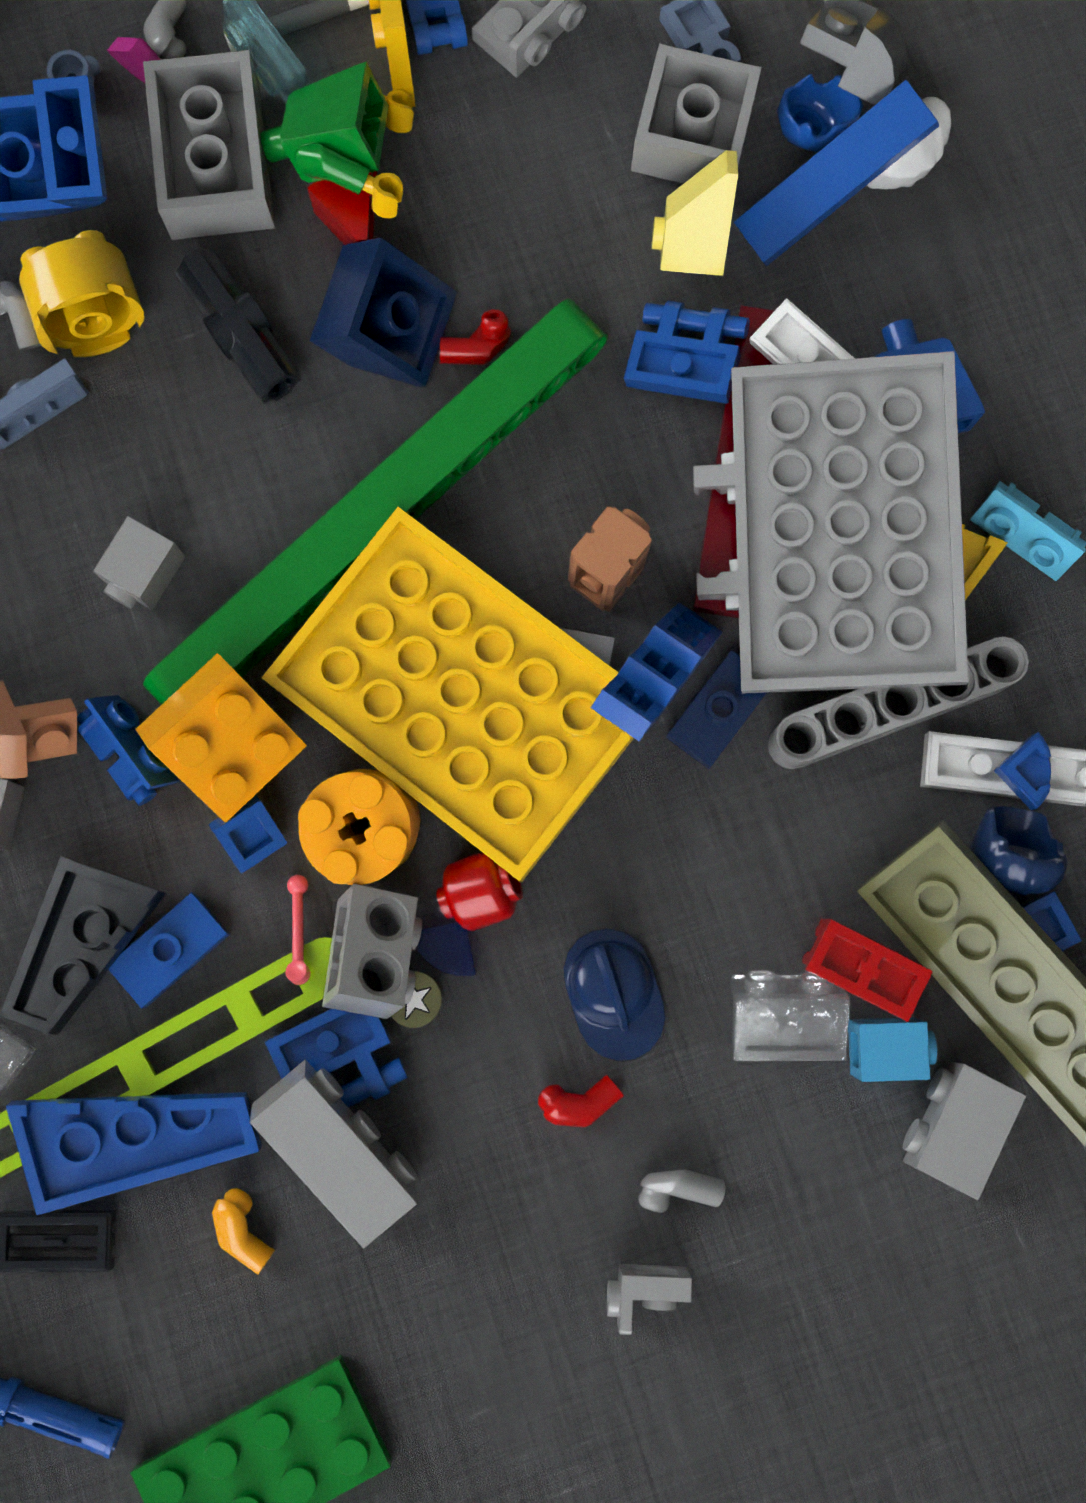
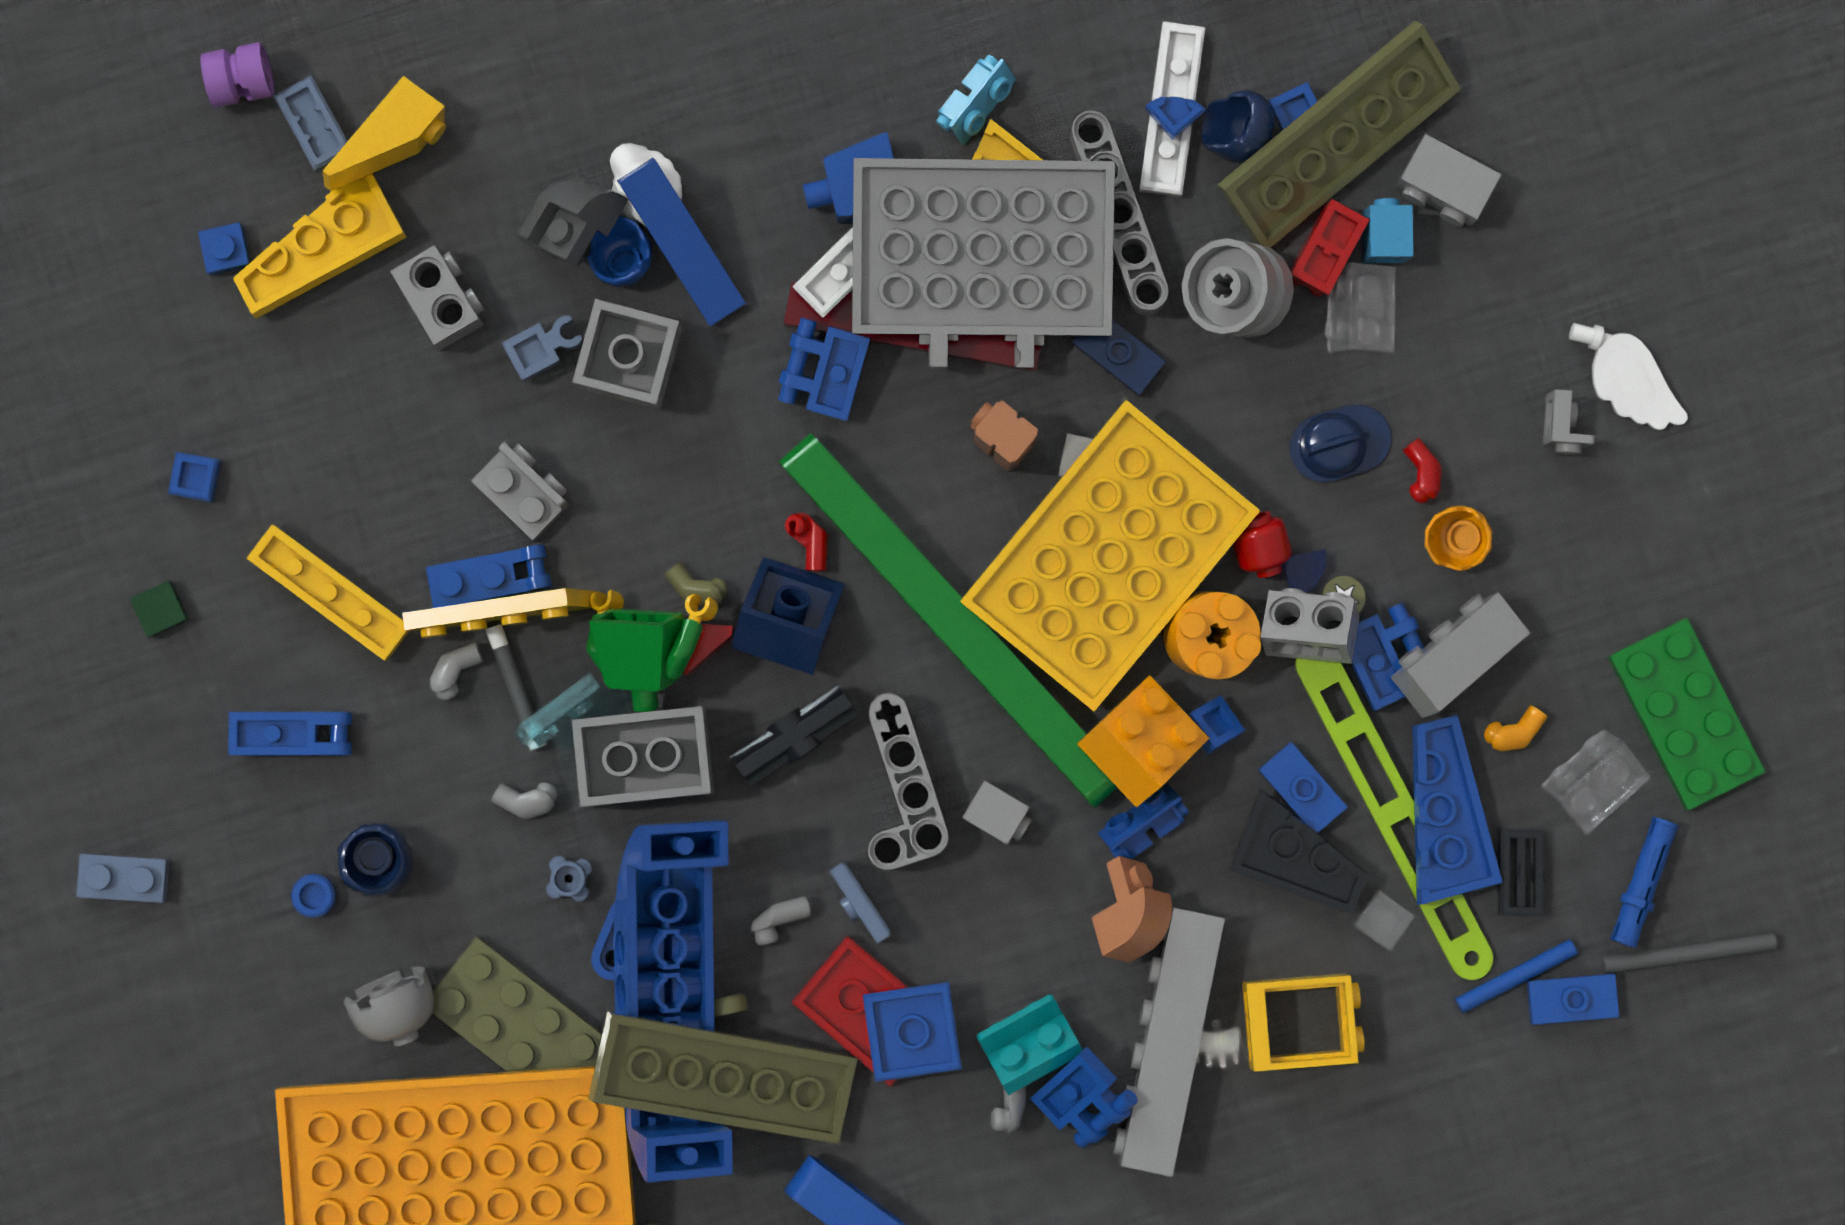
camera: 85 degrees left, 5 degrees up
(80, 295) = (774, 860): yellow brick -> none
(132, 54) = (556, 819): dark pink tile -> none
(172, 1342) = (1596, 780): none -> clear bracket
(183, 444) = (901, 777): none -> light grey beam
(297, 970) = (1322, 684): coral hinge -> none
(414, 210) = (686, 585): none -> olive arm
(491, 1149) = (1458, 538): none -> light orange hair
(656, 671) = (1099, 398): blue slope -> none
(681, 1184) = (1485, 396): light grey arm -> none
(698, 220) = (719, 355): light yellow slope -> none
(711, 1382) = (1629, 378): none -> white animal
(809, 848) = (1237, 288): none -> light grey wheel

